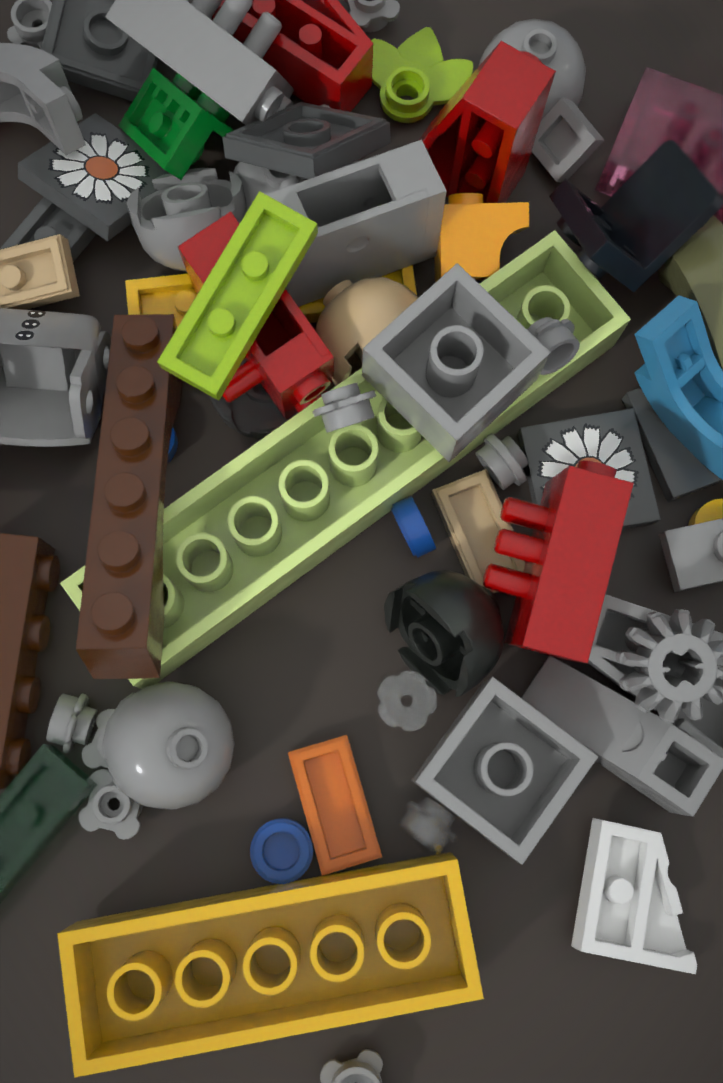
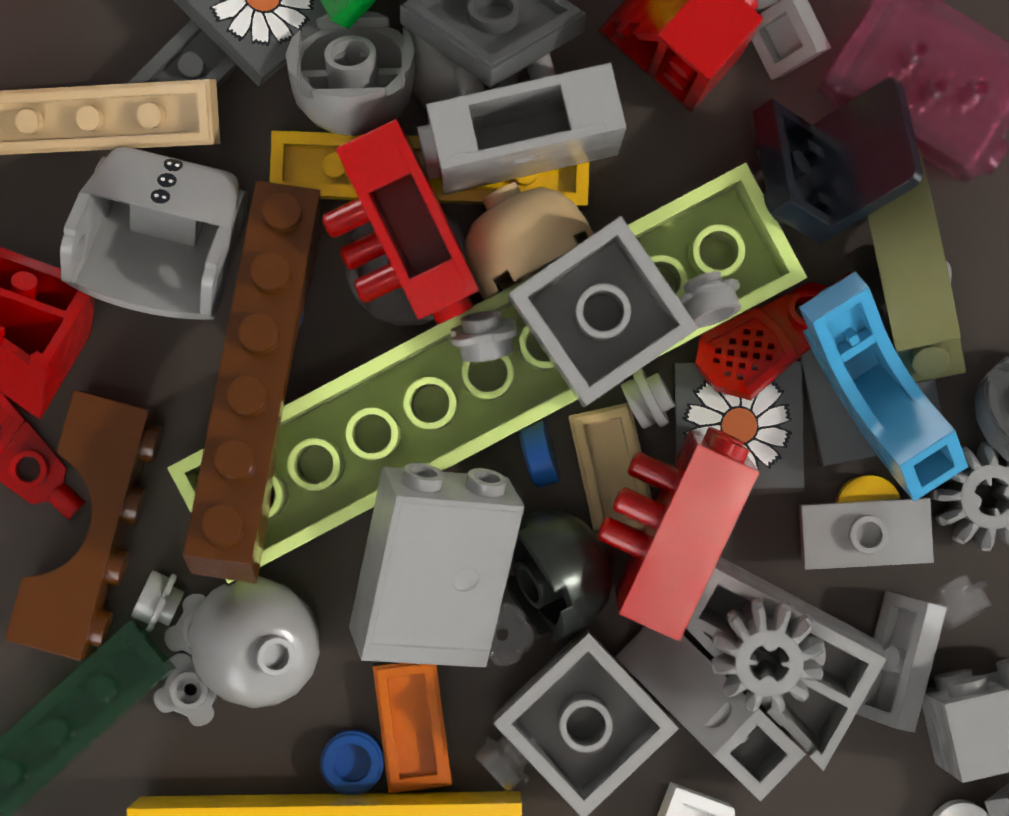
camera: 10 degrees right, 10 degrees up
(238, 295) = (390, 220): lime plate -> none
(333, 637) = (435, 566): none -> light grey piece
(475, 233) = (661, 145): light orange brick -> none
(594, 398) = (780, 330): none -> red piece

